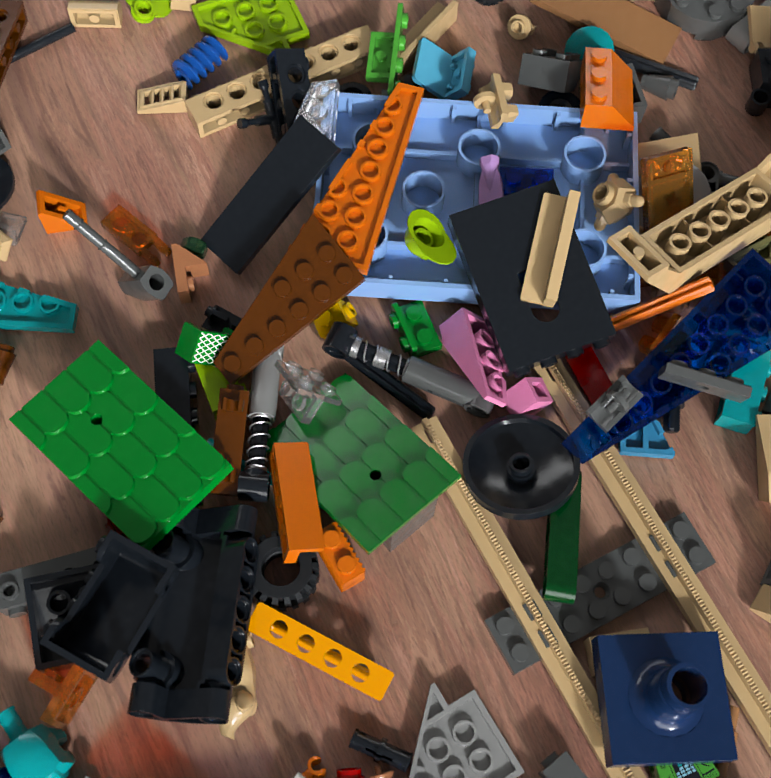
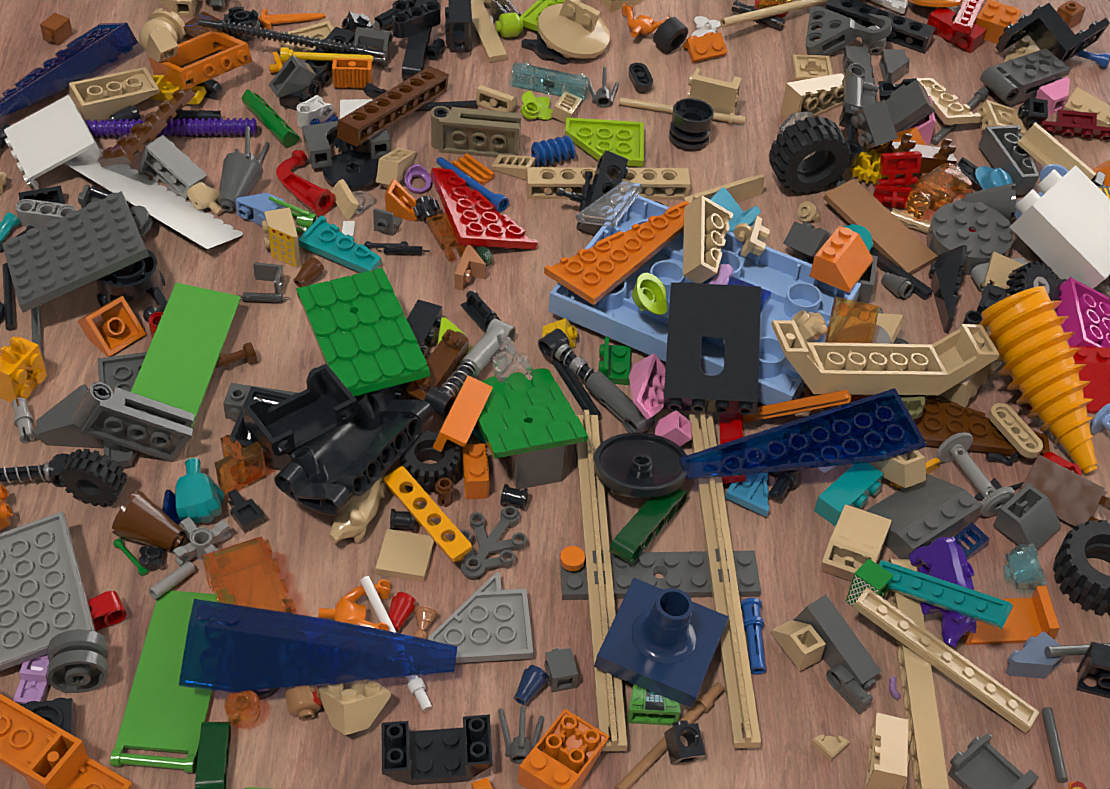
camera: 25 degrees right, 20 degrees down
(12, 273) = (348, 227): none -> white sticker
(24, 161) = (394, 166): none -> tan slope
(54, 156) = (417, 171): none -> medium lavender piece
(55, 250) = (385, 221): none -> dark grey bracket
(91, 269) = (369, 245): none -> black hinge
(94, 208) = (426, 207): none -> black gear
(94, 277) = (403, 250): none -> black piece
(97, 73) = (475, 131): none -> dark tan hinge
(104, 745) = (244, 512): none -> black plate
(120, 121) = (475, 168): none -> orange tile
(140, 282) = (437, 260): dark grey piece -> none
(153, 195) = (475, 217): none -> red wing
(171, 159) = (499, 200): none -> blue piece
(201, 345) = (458, 309): green panel -> none
(270, 195) = (553, 239): black tile -> none
(288, 664) = (402, 519): none -> black bush
(299, 291) = (539, 294): reddish brown wing -> none
(314, 707) = (405, 555): none -> tan tile
(323, 596) = (444, 488): none -> reddish brown pin
(380, 750) = (435, 597): black pin -> none
(384, 53) = (691, 184): bright green bracket -> none
(397, 568) = (514, 496): none -> black bush
(401, 646) = (491, 544): none -> dark grey plant
(449, 132) = (703, 238): none -> tan wedge
(506, 626) = (572, 558): none -> orange tile
(550, 248) = (734, 327): tan panel -> none
(614, 404) = (729, 441): dark grey hips -> none
(705, 381) = (808, 455): dark grey tile -> none
(710, 60) = (946, 282): none -> black wedge
(733, 617) = (753, 625): none -> blue pin

